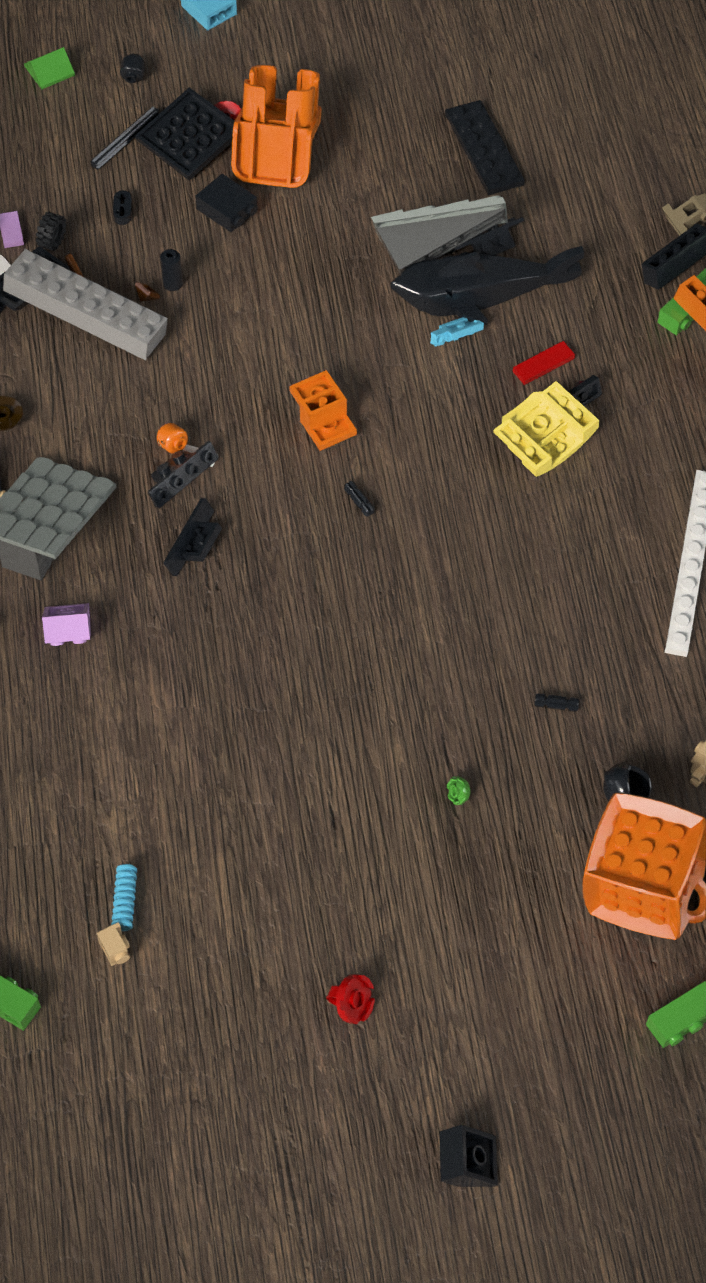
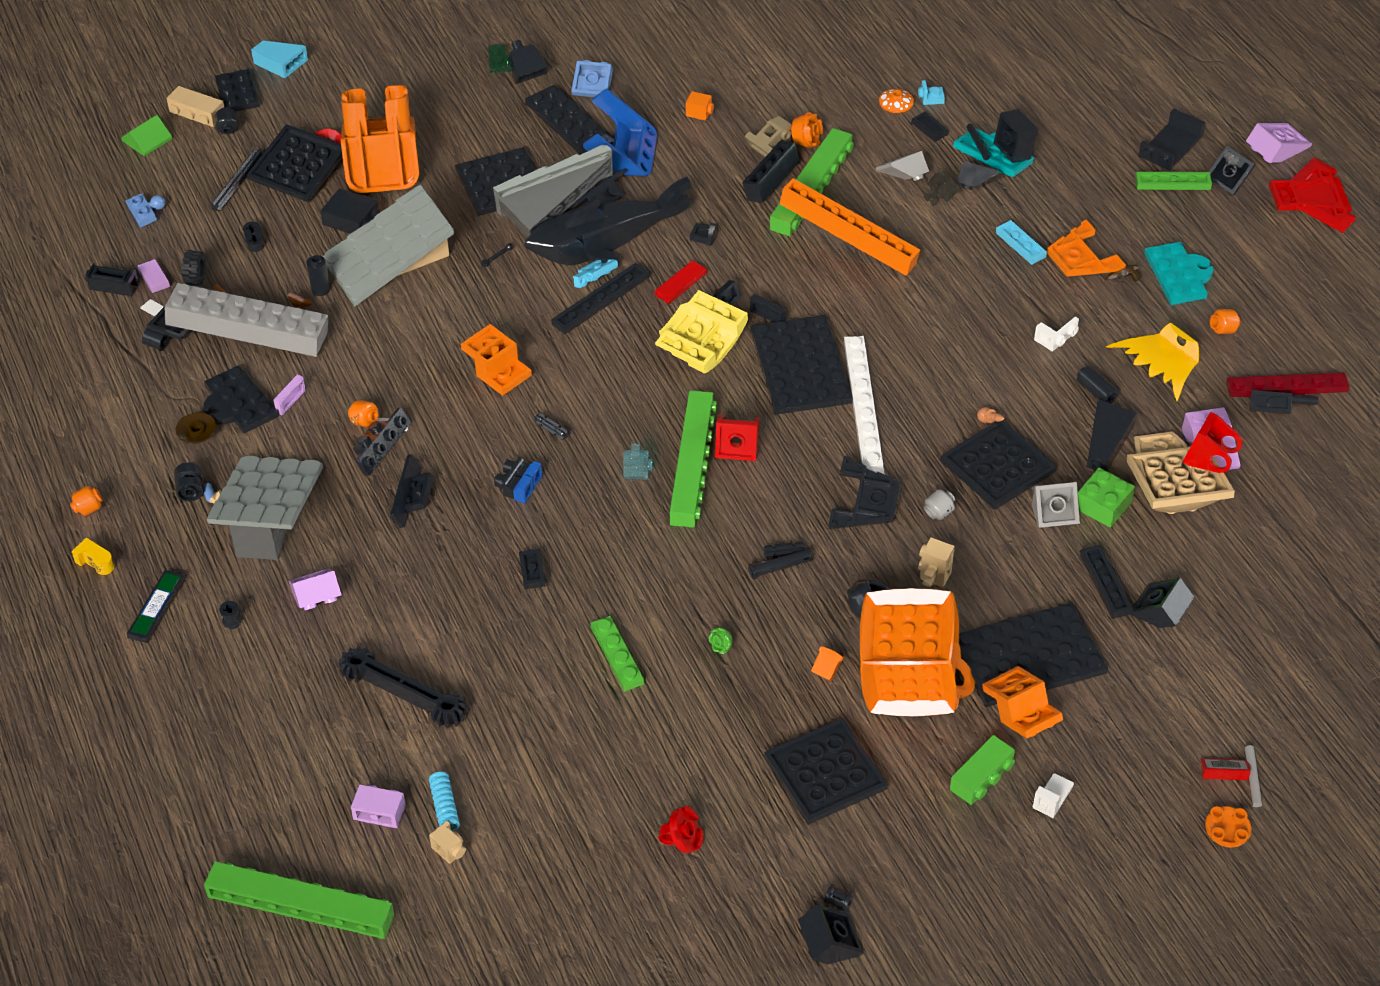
camera: 15 degrees left, 10 degrees down
(21, 150) = (142, 210): none -> medium blue plate
(52, 391) = (237, 400): none -> black plate
(58, 884) = (378, 806): none -> lavender brick
(105, 43) = (194, 105): none -> tan brick
(105, 398) = (289, 394): none -> lavender tile
(121, 758) = (361, 664): none -> black arm
(154, 35) = (237, 90): none -> black plate
(253, 252) = (391, 244): none -> light grey piece
(290, 658) = (532, 569): none -> black plate
(308, 552) = (520, 479): none -> hips
(348, 292) = (485, 263): none -> black hinge
(348, 776) = (617, 653): none -> bright green plate
(387, 191) = (487, 172): none -> black plate
(432, 565) = (636, 463): none -> clear light blue brick
(434, 61) = (498, 59): none -> clear green plate
(453, 362) = (600, 298): none -> black plate
(457, 68) = (526, 62): none -> black torso
(490, 1117) = (846, 896): none -> black bush
(491, 574) = (691, 459): none -> bright green brick
(521, 969) = (825, 771): none -> black plate
(522, 102) = (591, 78): none -> medium blue plate
(542, 187) = (633, 138): none -> blue windscreen
(547, 717) = (779, 563): none -> black pin
(556, 560) = (746, 430): none -> hose
(561, 846) = (827, 663): none -> orange tile
(585, 312) = (704, 233): none -> black tile
(625, 159) = (699, 105): none -> orange brick
(625, 418) = (767, 309): none -> black tile
(641, 490) = (801, 364): none -> black plate
(669, 670) = (875, 498): none -> black wing

